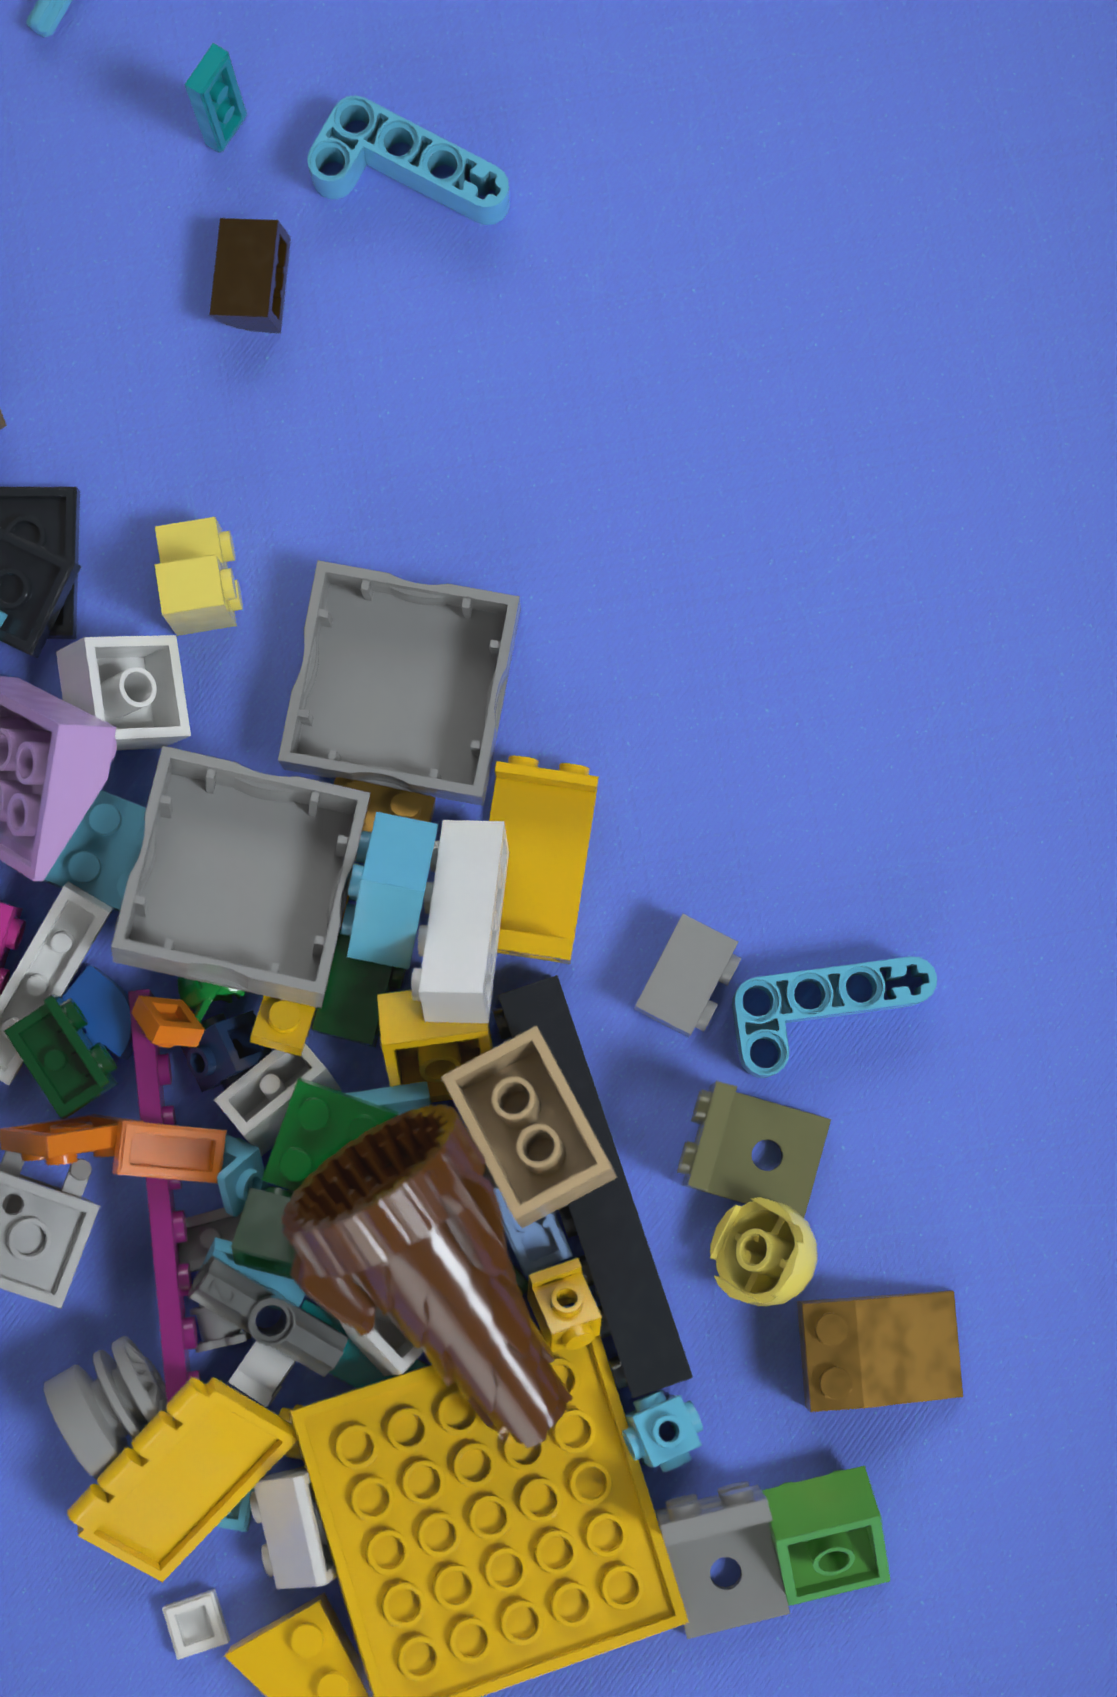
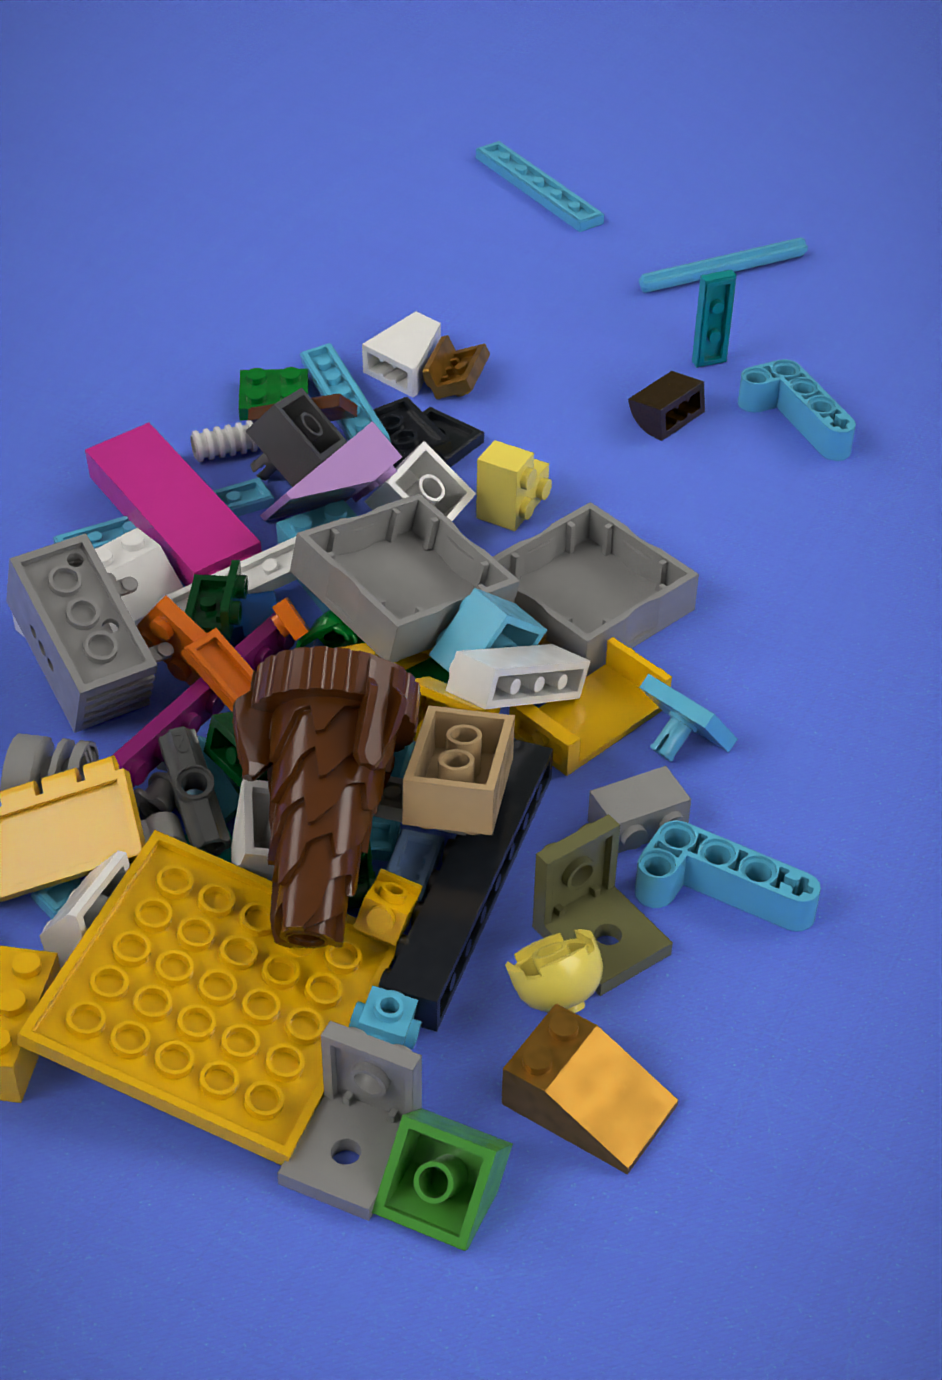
camera: 35 degrees right, 40 degrees down
(650, 821) = (685, 718): none -> medium azure tile

